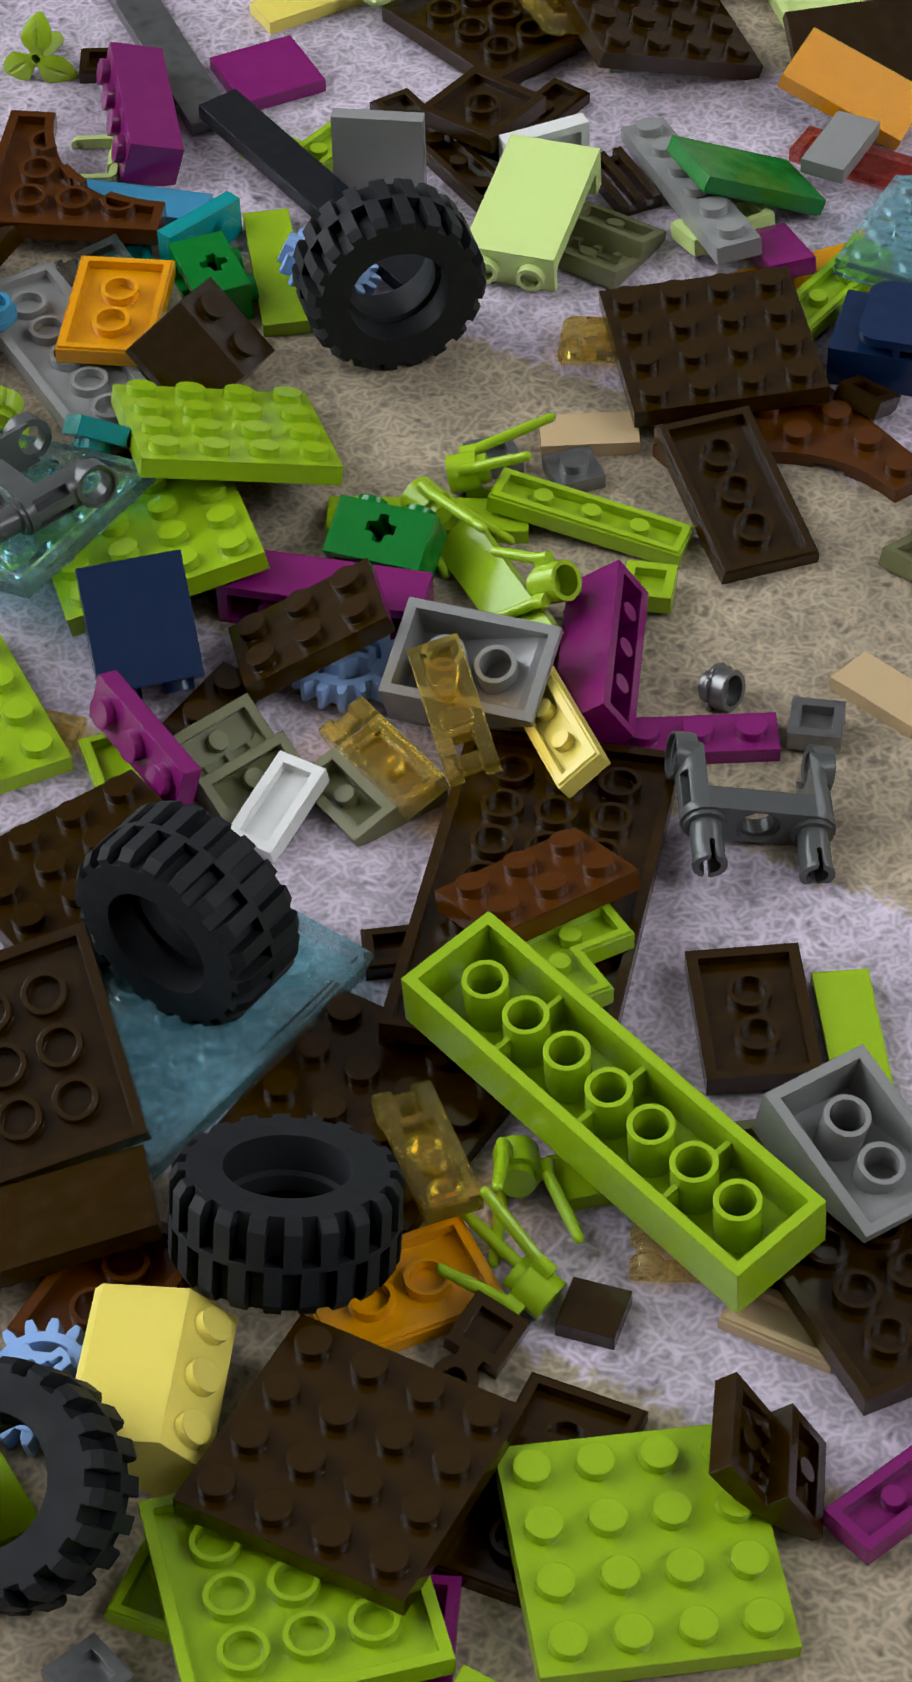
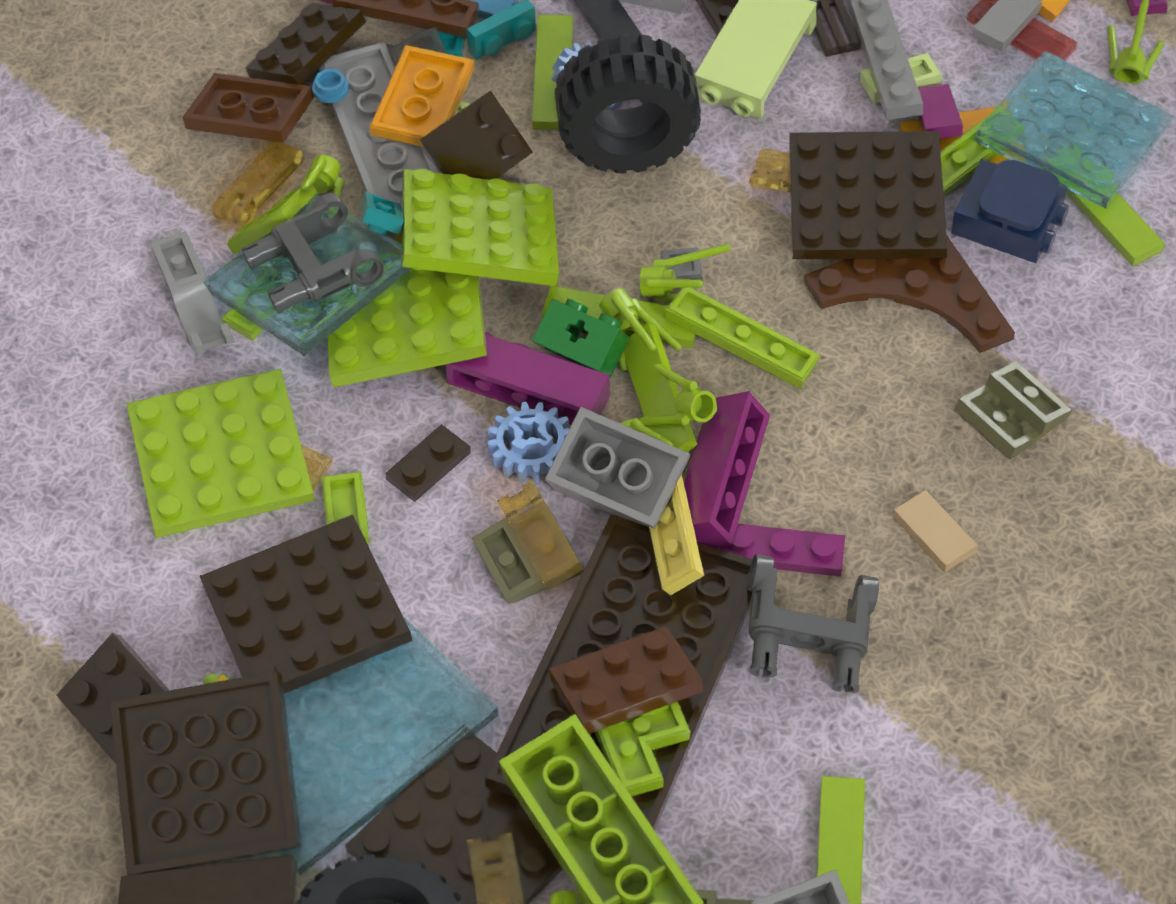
camera: 10 degrees right, 10 degrees up
(141, 621) = (379, 394): dark blue brick -> none
(143, 739) = (365, 494): magenta plate -> none
(188, 913) = (354, 676): black tyre -> none
(213, 257) = (501, 70): green brick -> none
(233, 752) = (431, 516): olive slope -> none
(280, 803) = (454, 562): white tile -> none
(311, 629) = (506, 416): dark brown plate -> none
(386, 946) = (507, 698): dark brown tile -> none
(453, 708) = (595, 508): clear yellow plate -> none
(574, 469) = (739, 288): flat silver plate -> none
(603, 431) = (758, 257): tan tile -> none
(608, 245) = (810, 82): olive slope -> none
(658, 580) = (778, 402): lime plate -> none
(721, 683) = (809, 502): flat silver plate -> none
(735, 495) = (856, 332): dark brown tile -> none
(745, 175) = (926, 39): green tile -> none
(751, 1017) = (769, 810): dark brown plate -> none
(816, 723) = (873, 552): flat silver plate -> none
(867, 397) = (977, 255): dark brown tile -> none

